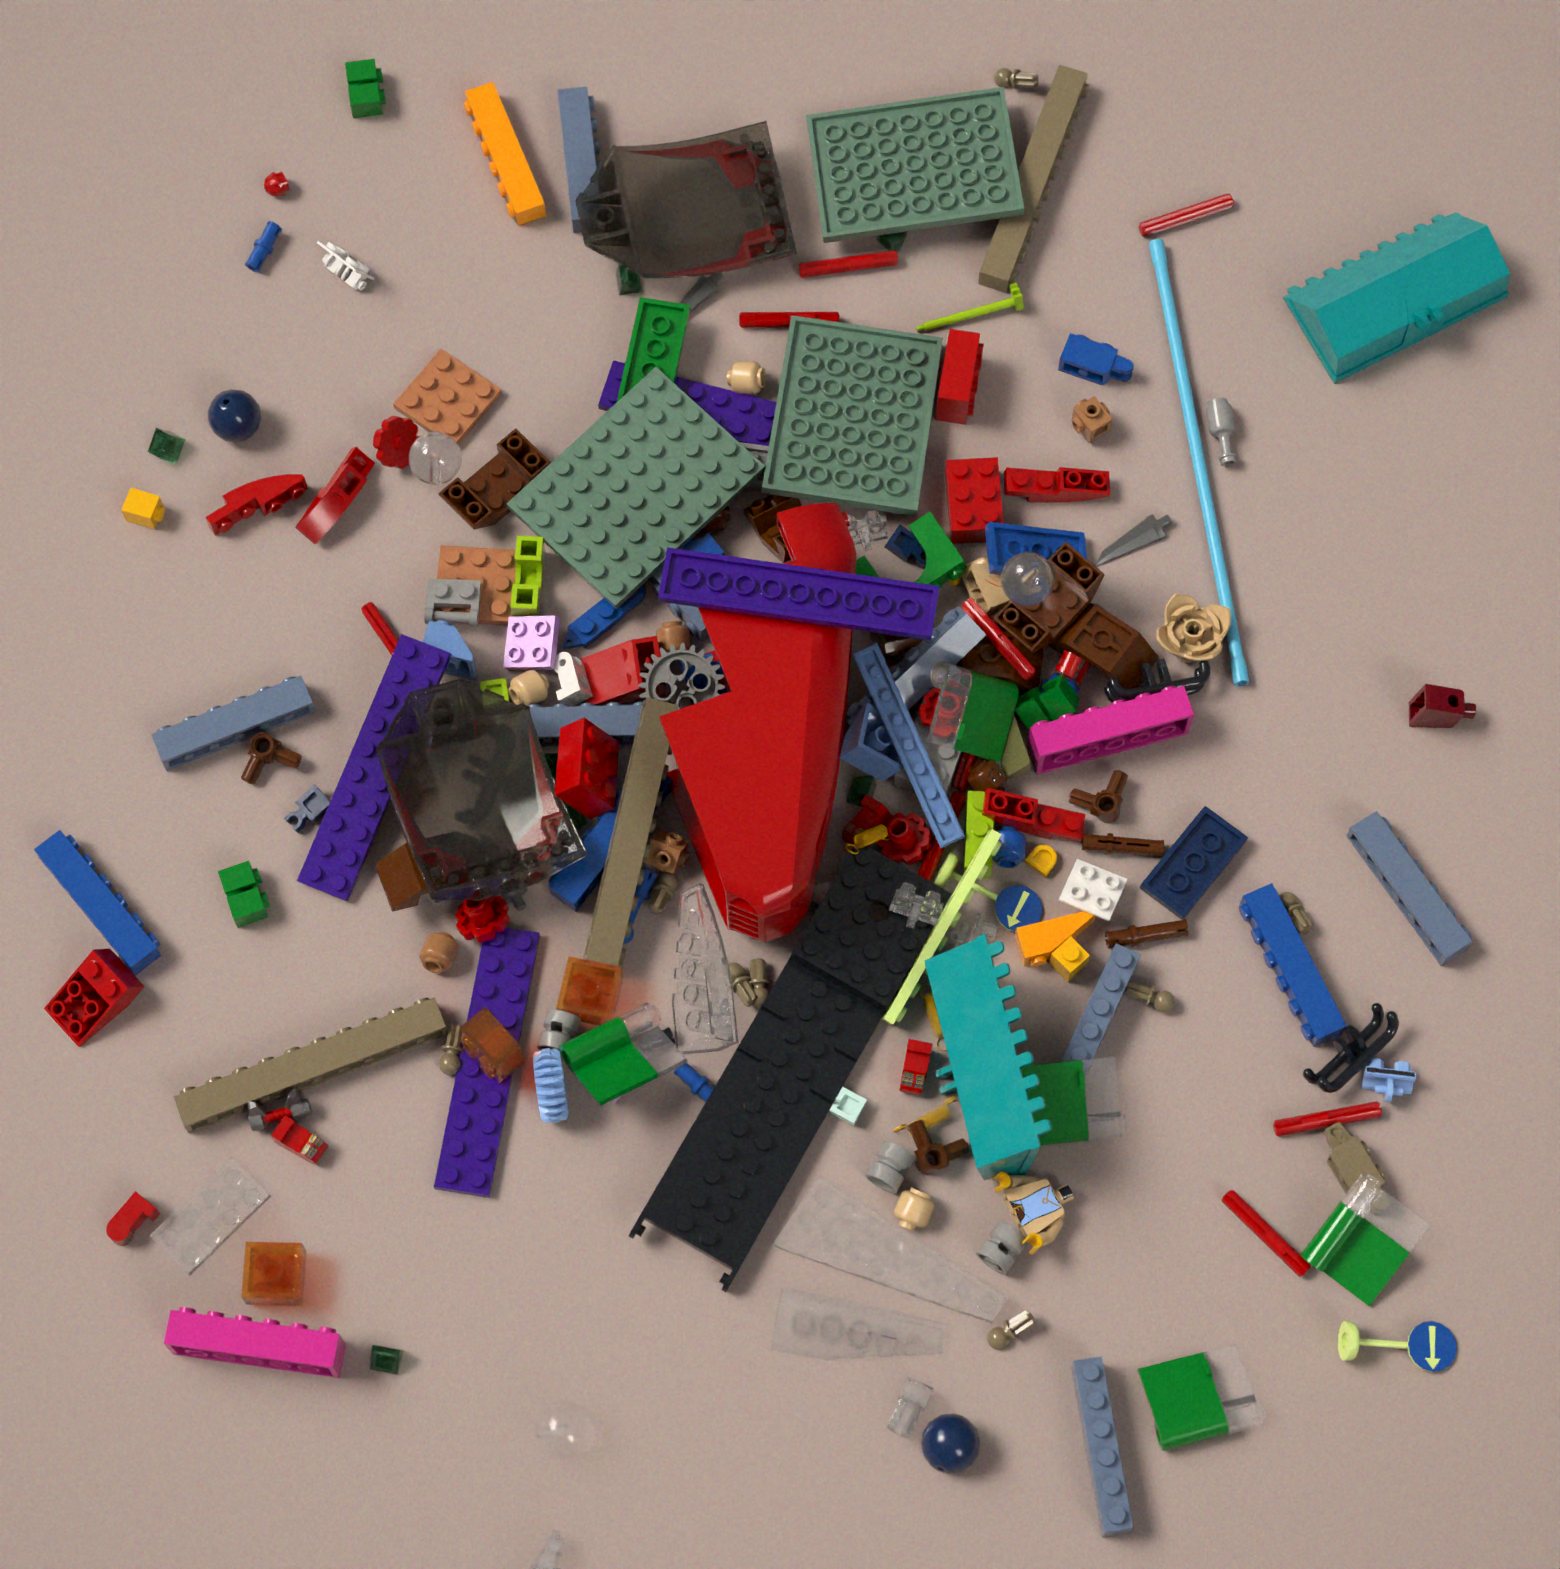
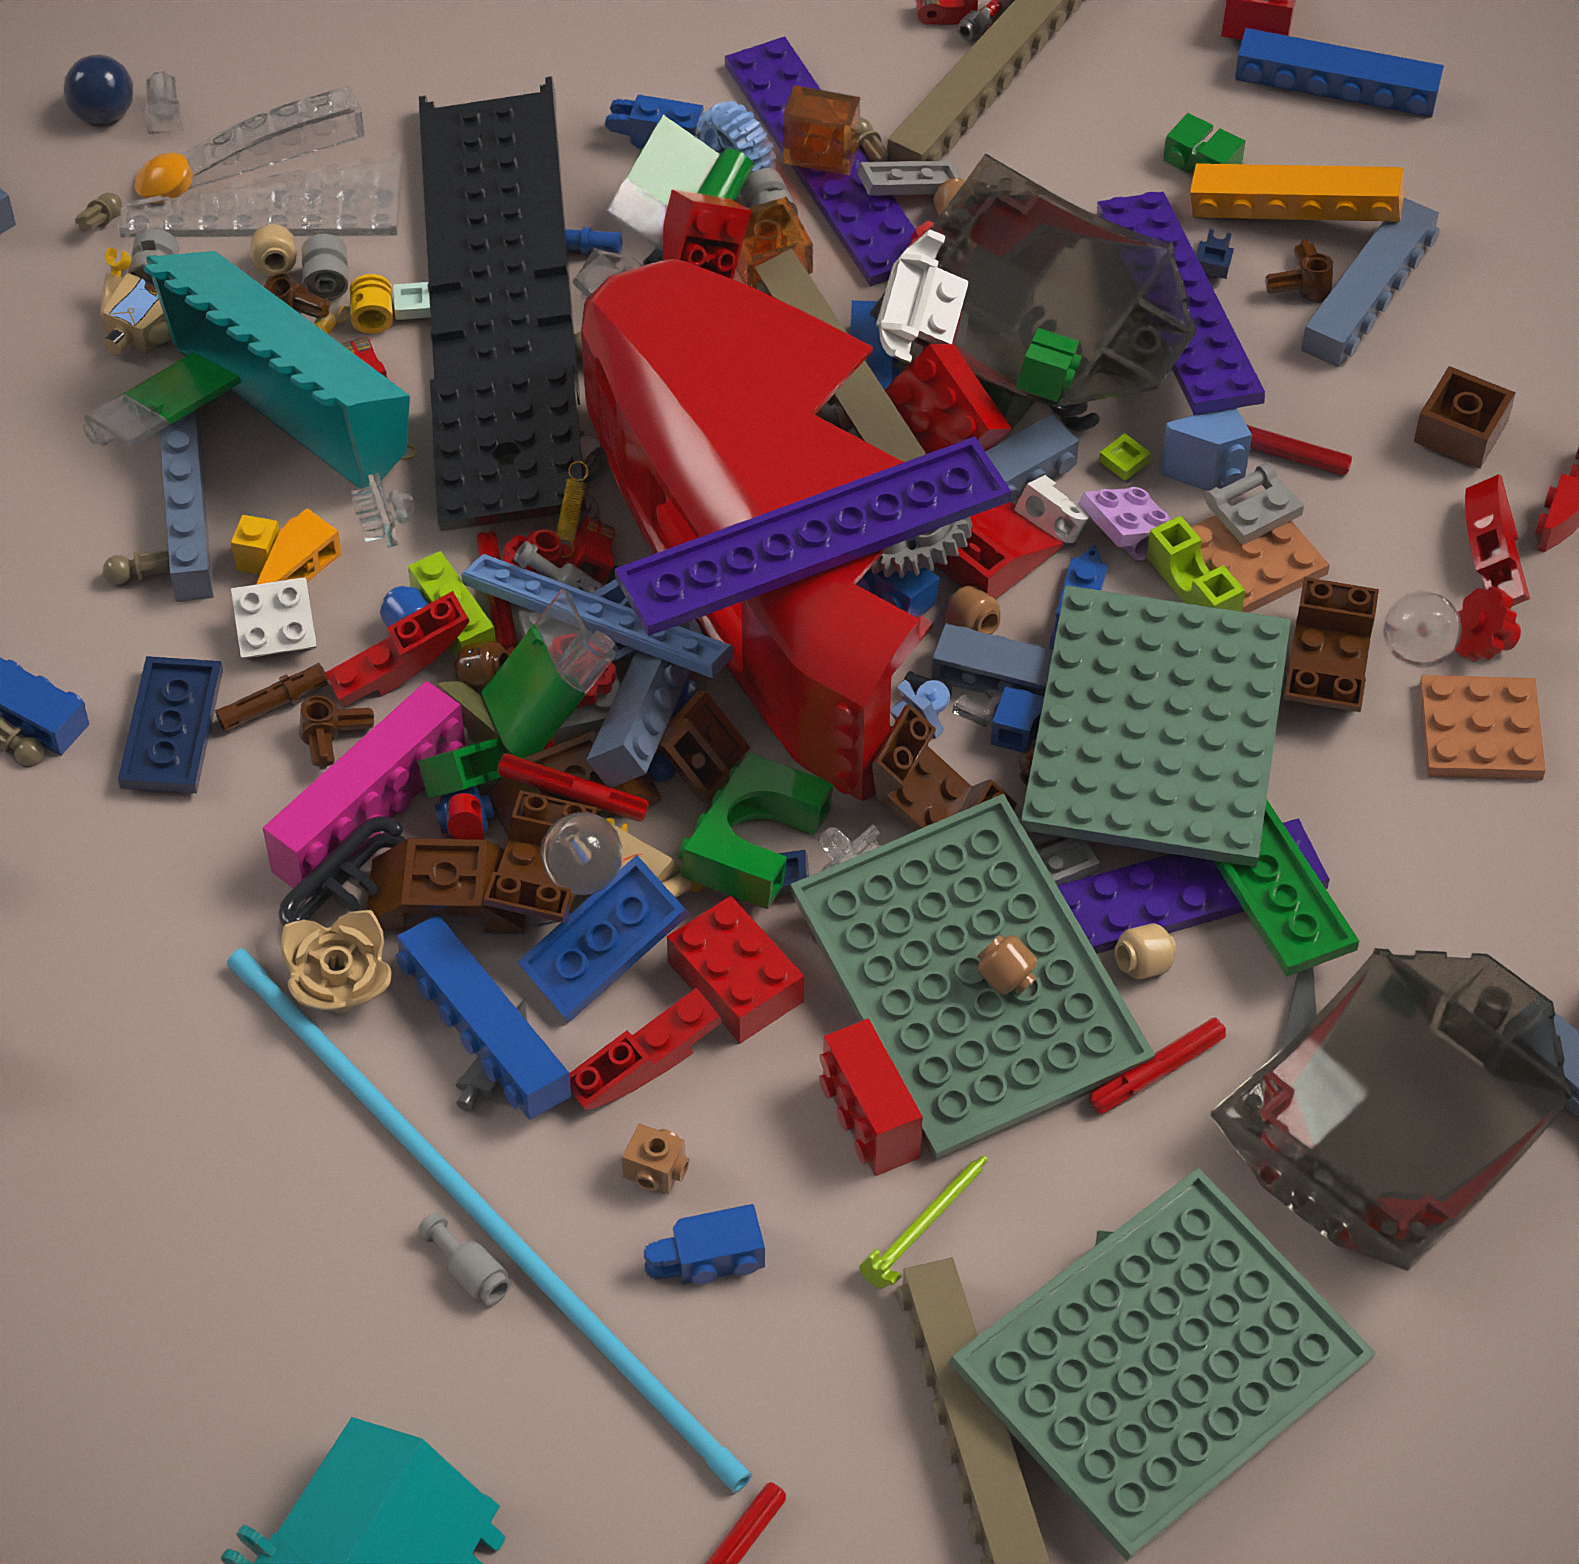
camera: 145 degrees right, 15 degrees down
(224, 806) = (1298, 192): none -> light orange brick
(276, 582) = (1464, 417): none -> reddish brown brick
(454, 988) = (905, 177): none -> light grey plate
(507, 737) = (1049, 365): none -> green piece
(528, 688) = (1089, 472): tan head -> none
(557, 828) = (919, 300): none -> white plate
(581, 1151) = (642, 115): none -> blue hinge
(642, 993) = (704, 231): none -> red slope
(838, 390) = (1007, 965): none -> medium nougat head
(848, 264) = (1143, 1185): red axle -> none
(878, 1115) = (371, 303): none -> yellow piece
(902, 802) = (567, 574): none -> light grey piece
(923, 909) = (478, 458): clear hips -> none
(948, 917) = (422, 486): yellowish green plate -> none
(949, 1332) = (164, 175): none -> light orange hat
(1013, 906) = (362, 571): piece -> none
(1042, 859) = (360, 636): yellow tile -> none
(1131, 551) = (483, 1017): none -> blue brick
(1136, 935) = (194, 615): reddish brown pin -> none

